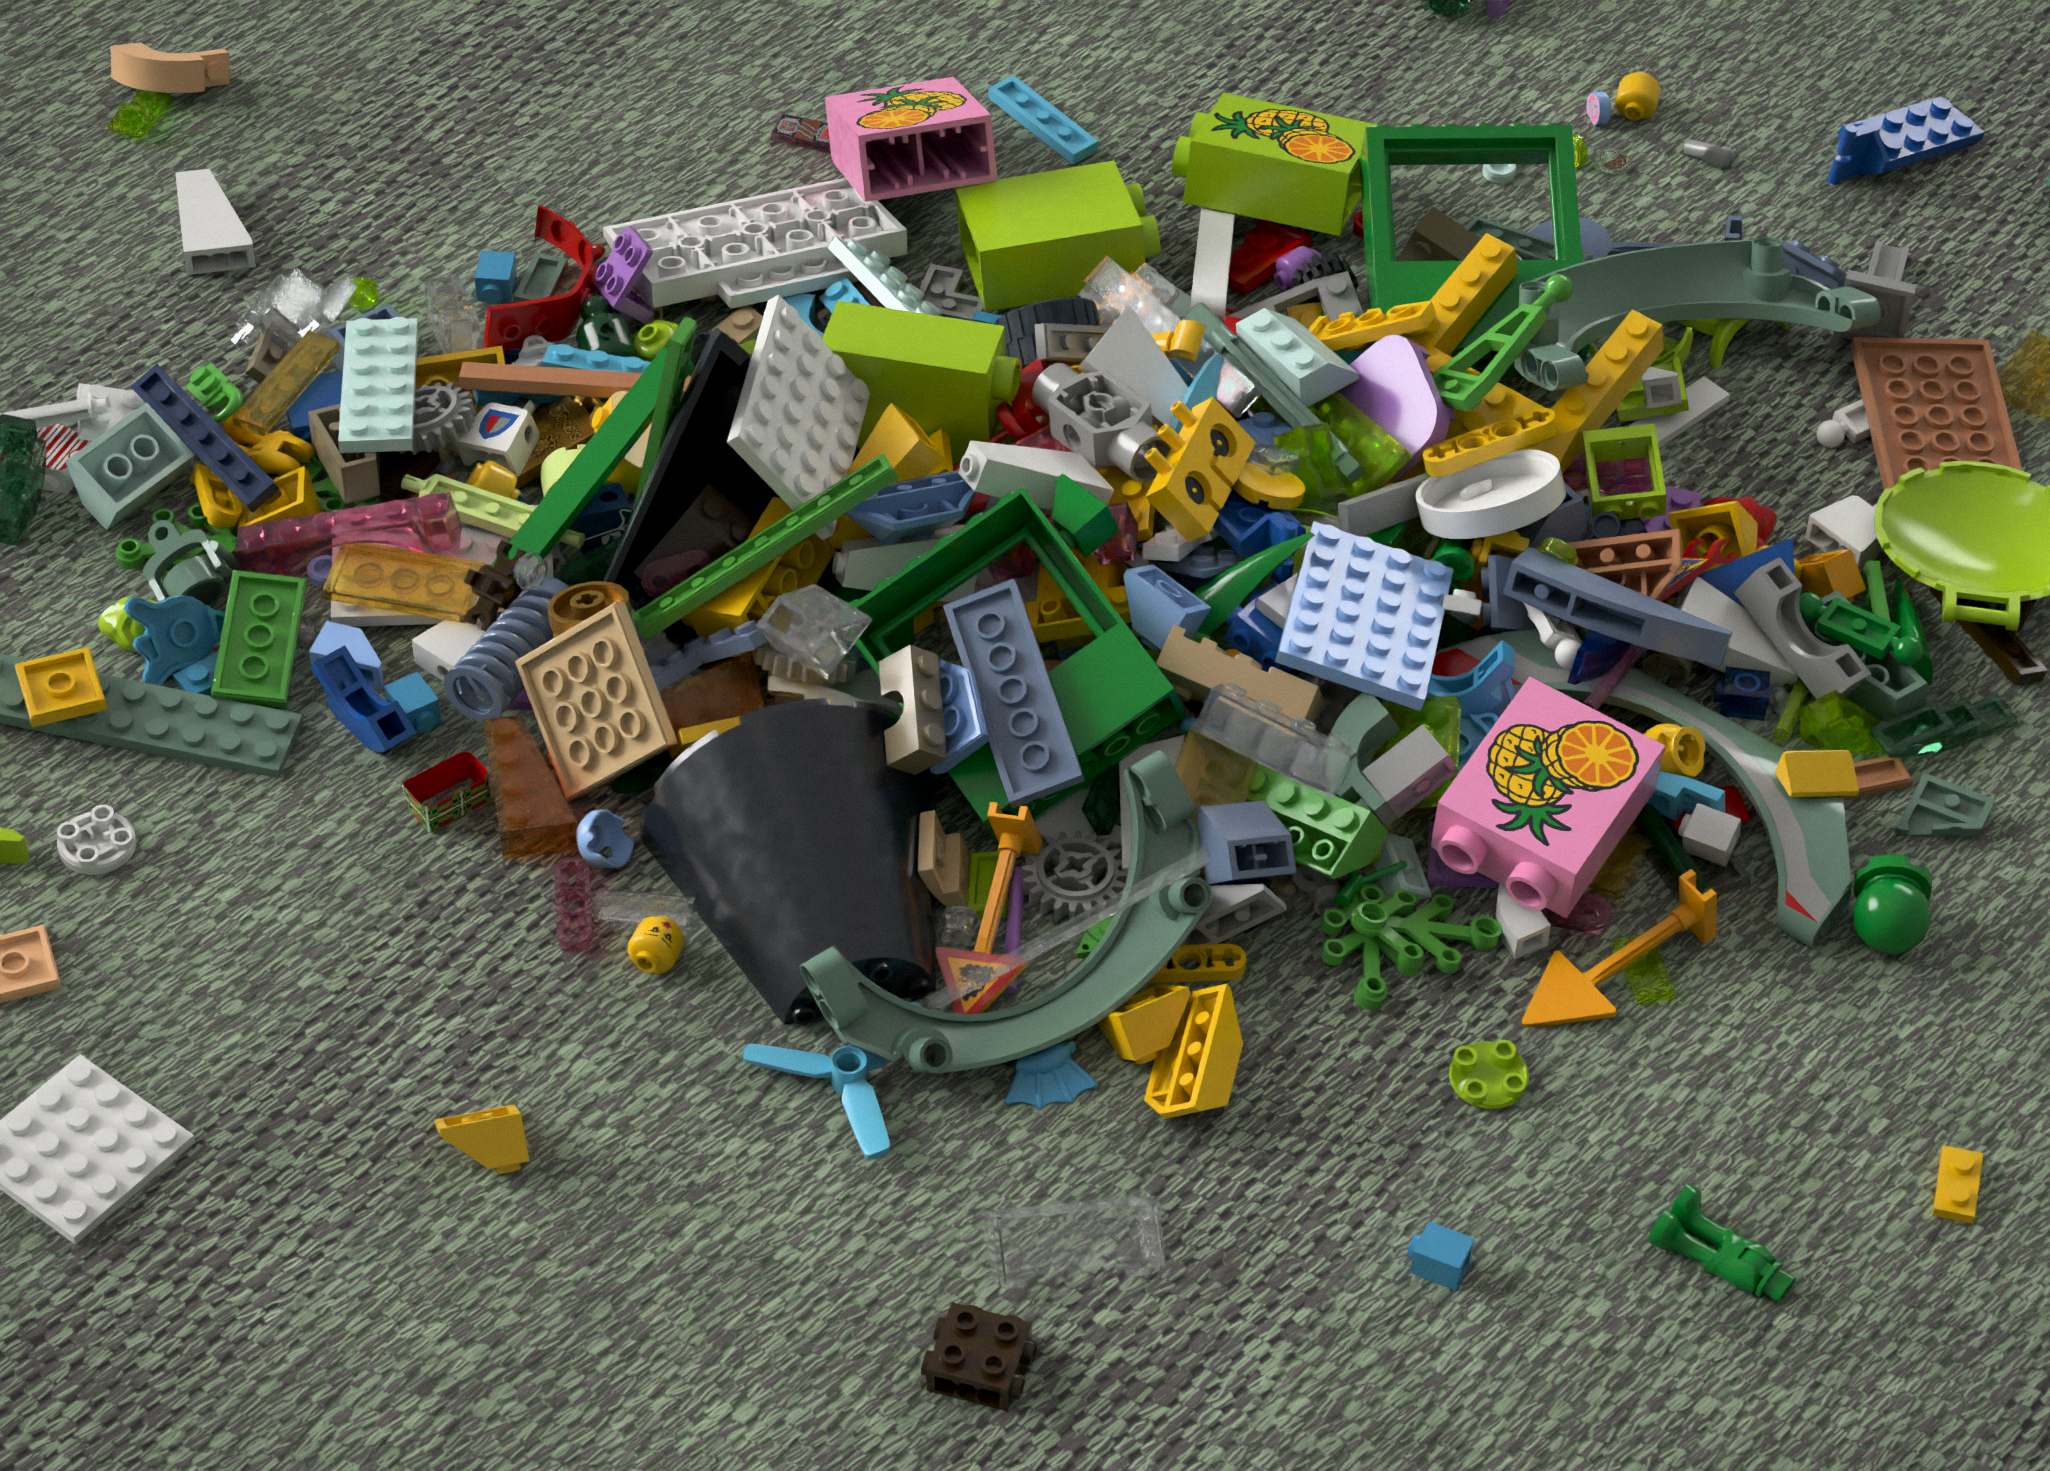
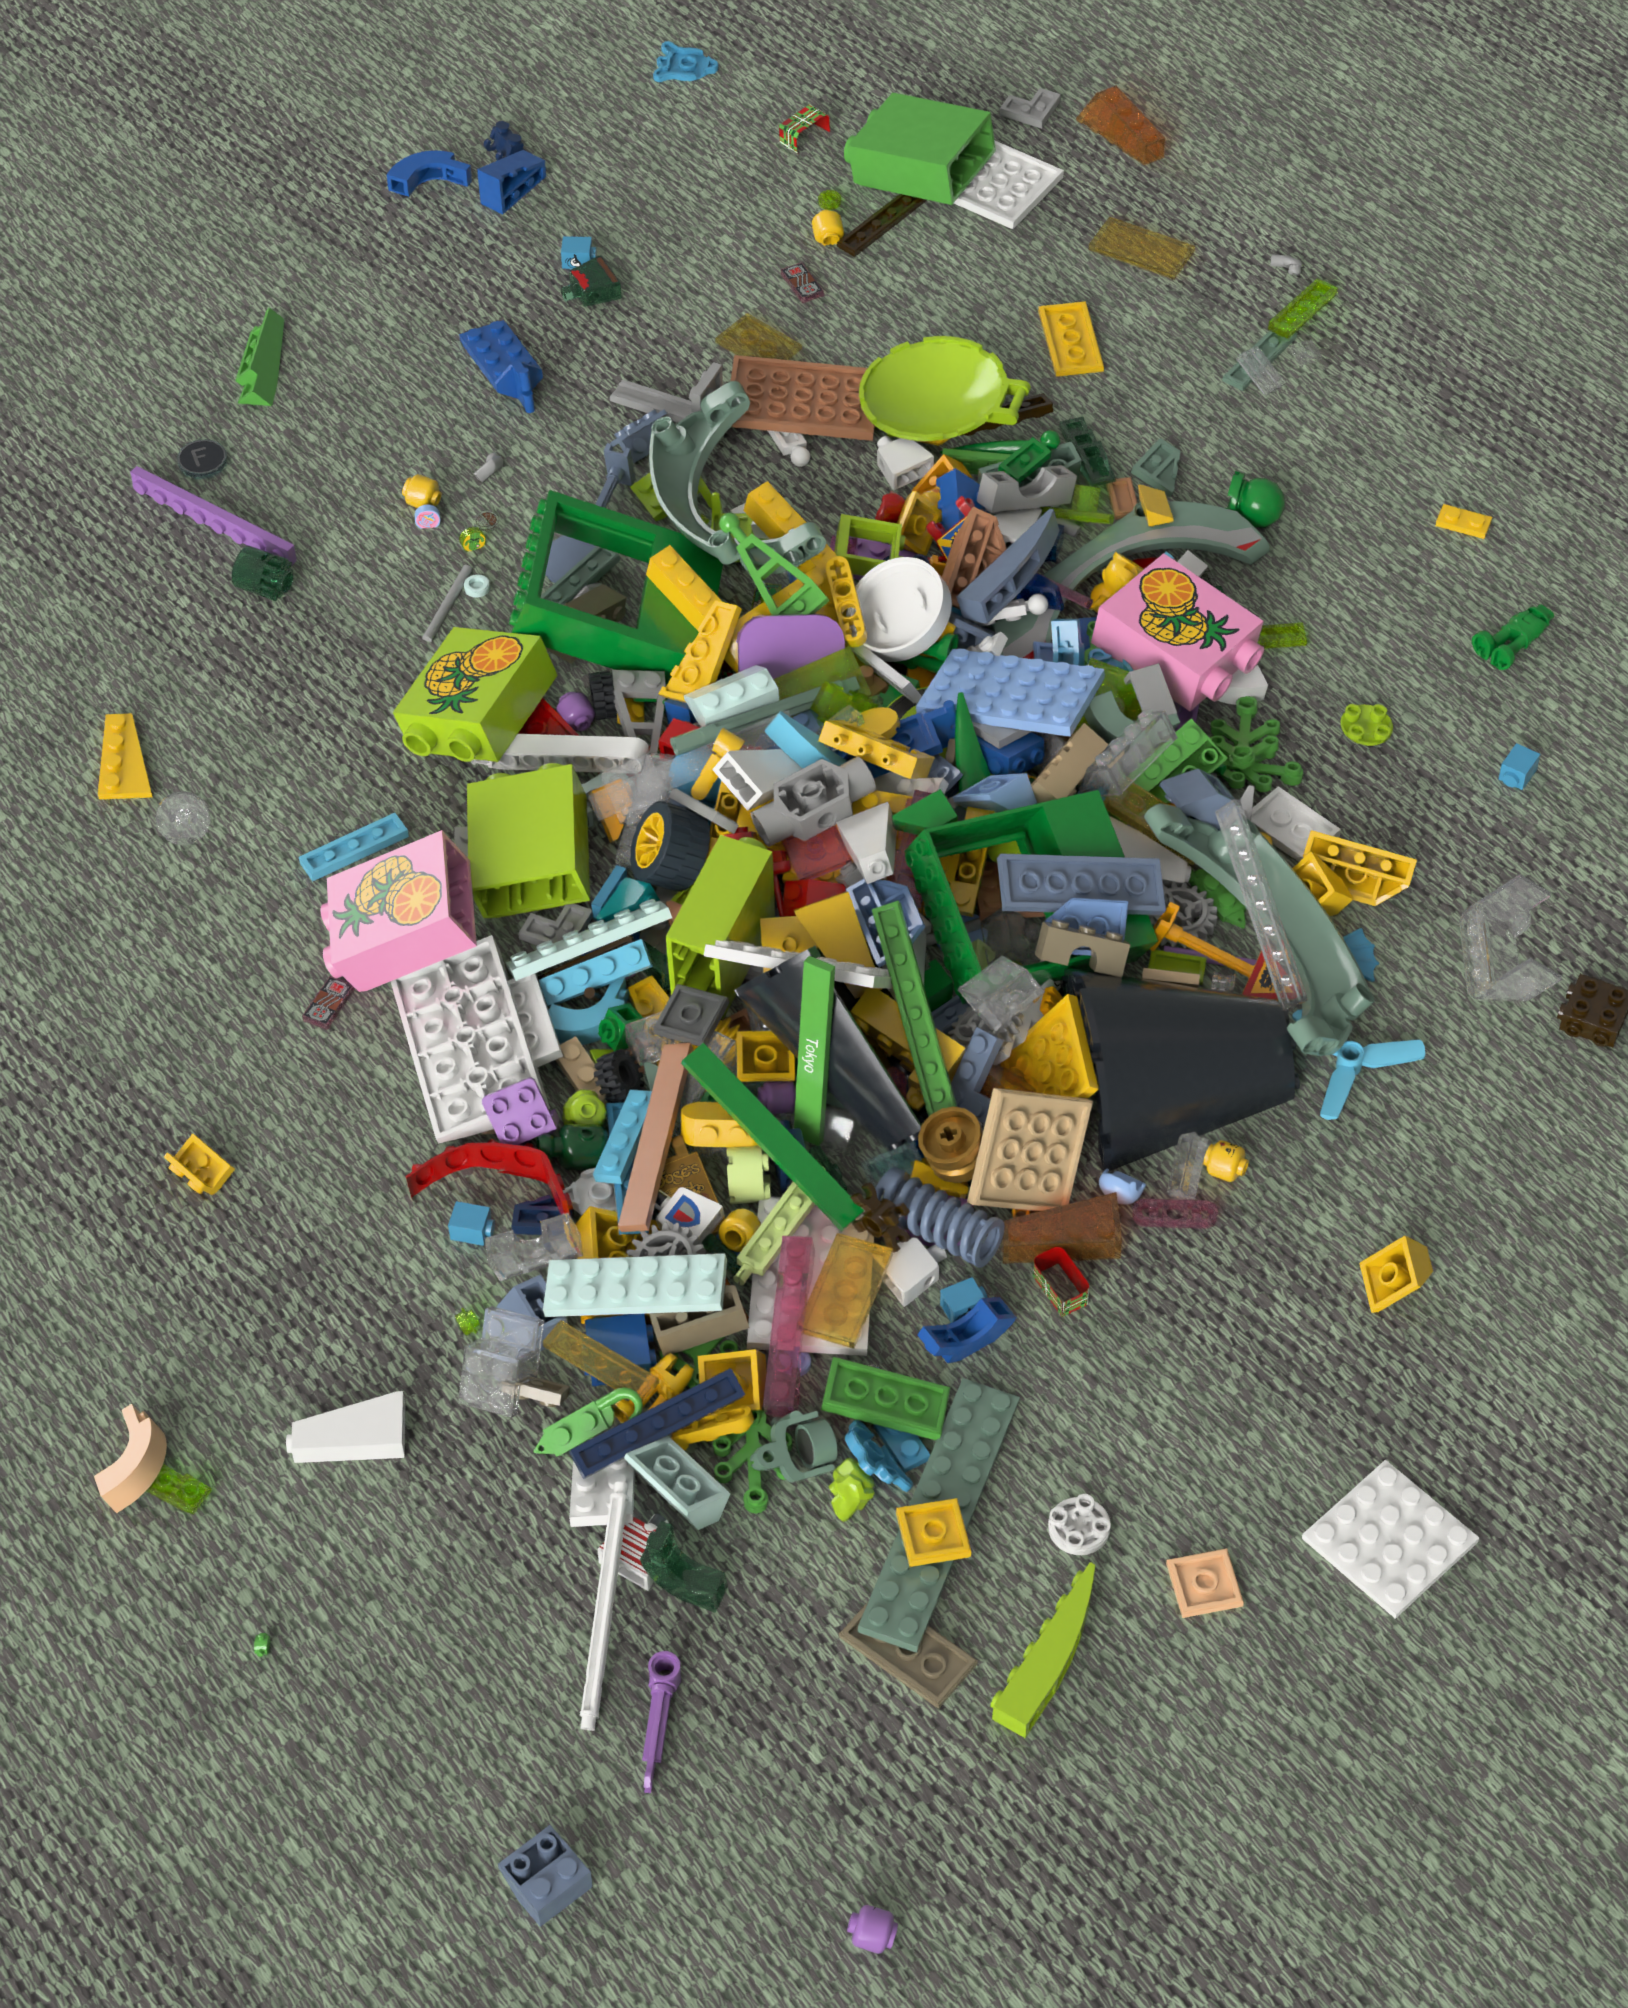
camera: 80 degrees left, 5 degrees up
(337, 635) = (900, 1344): light blue slope -> none
(530, 570) = (884, 1183): clear plate -> none
(541, 277) = (473, 1193): sand green tile -> none
(555, 63) = (200, 1165): none -> yellow bracket
(1275, 991) = (1289, 822): none -> white plate
(1558, 549) = (963, 582): clear neon green tile -> none
(1572, 996) = (1298, 675): light orange piece -> none

